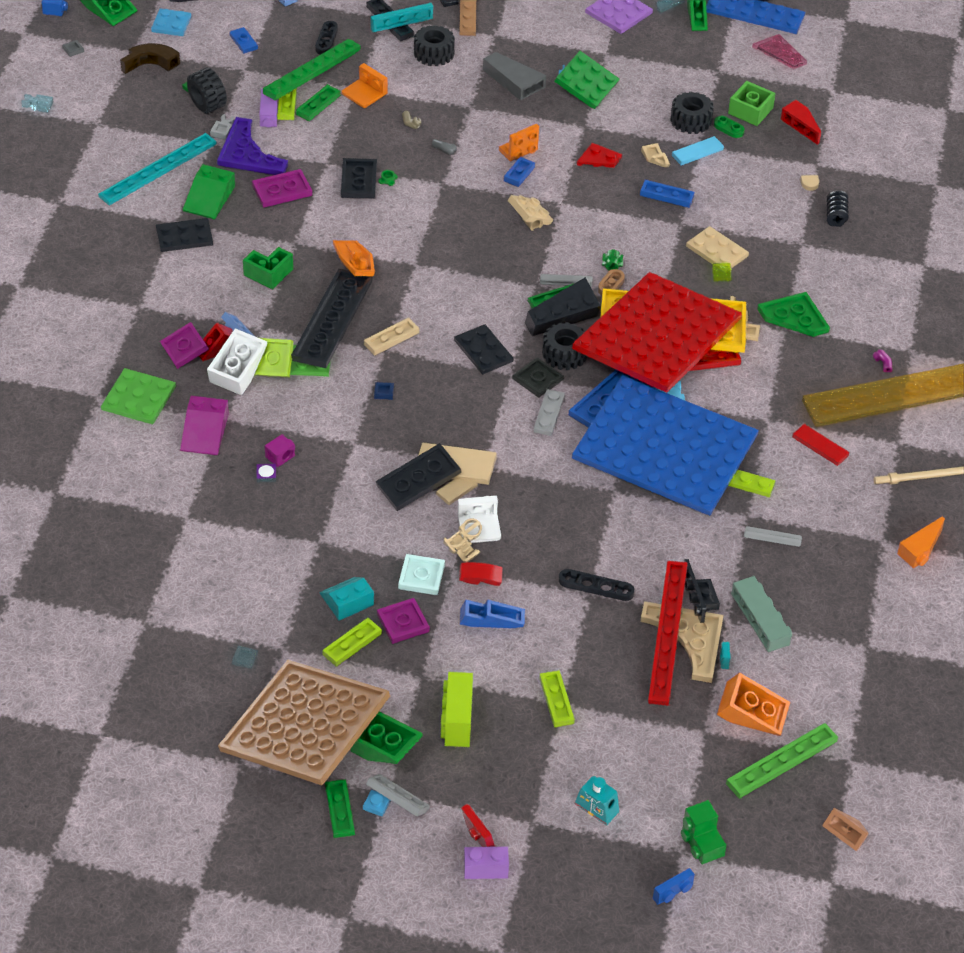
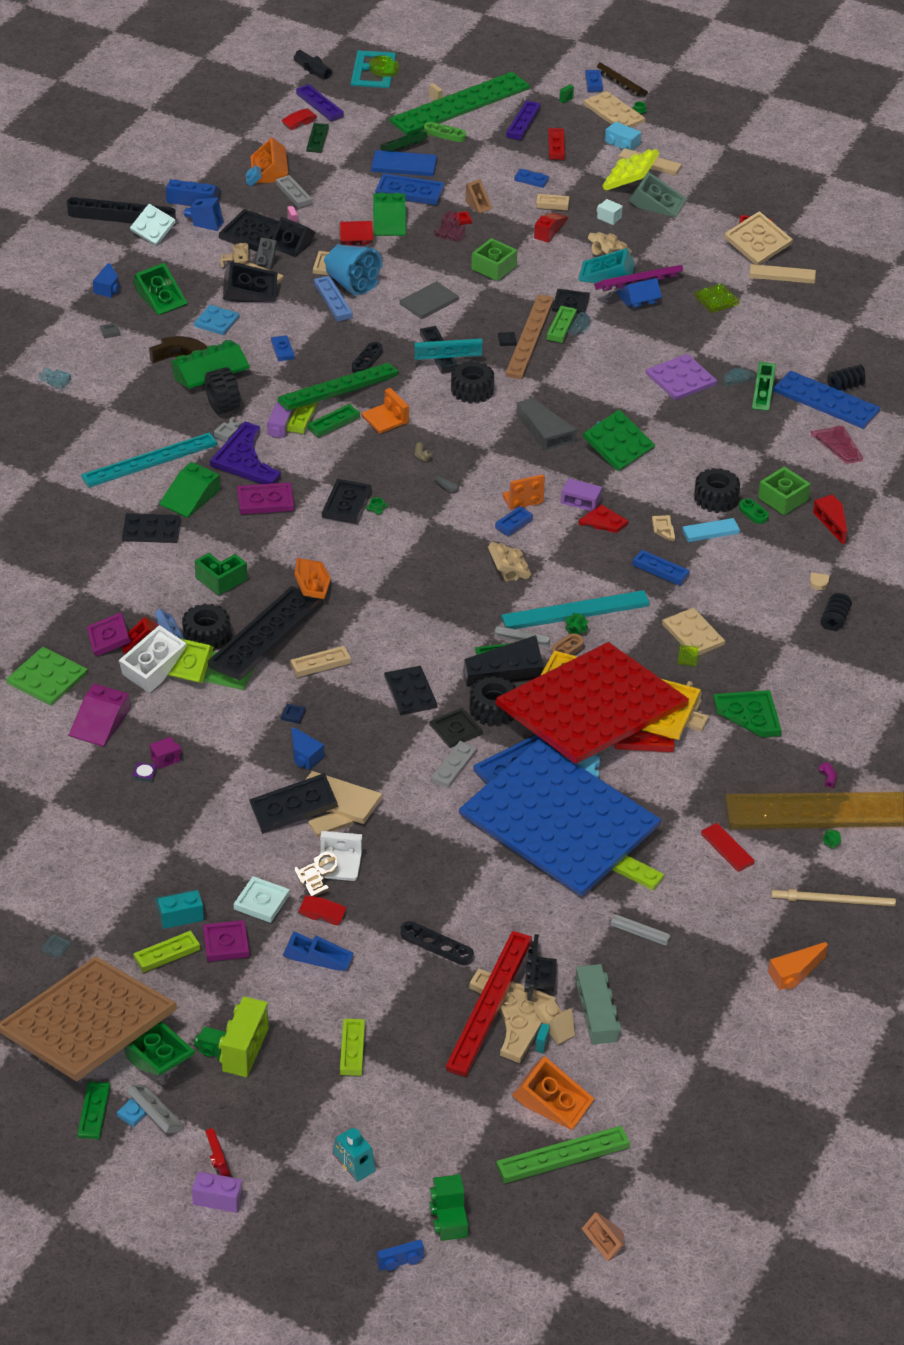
camera: 15 degrees right, 5 degrees down
(174, 70) = (191, 369): none -> green slope
(274, 320) = (207, 625): none -> black tyre
(409, 423) = (306, 750): none -> blue slope
(427, 721) = (208, 1042): none -> green brick
(571, 137) = (581, 495): none -> medium lavender brick
(596, 249) = (586, 607): none -> teal tile
(738, 639) = (560, 1022): none -> tan slope
(909, 419) = (832, 838): none -> green plate

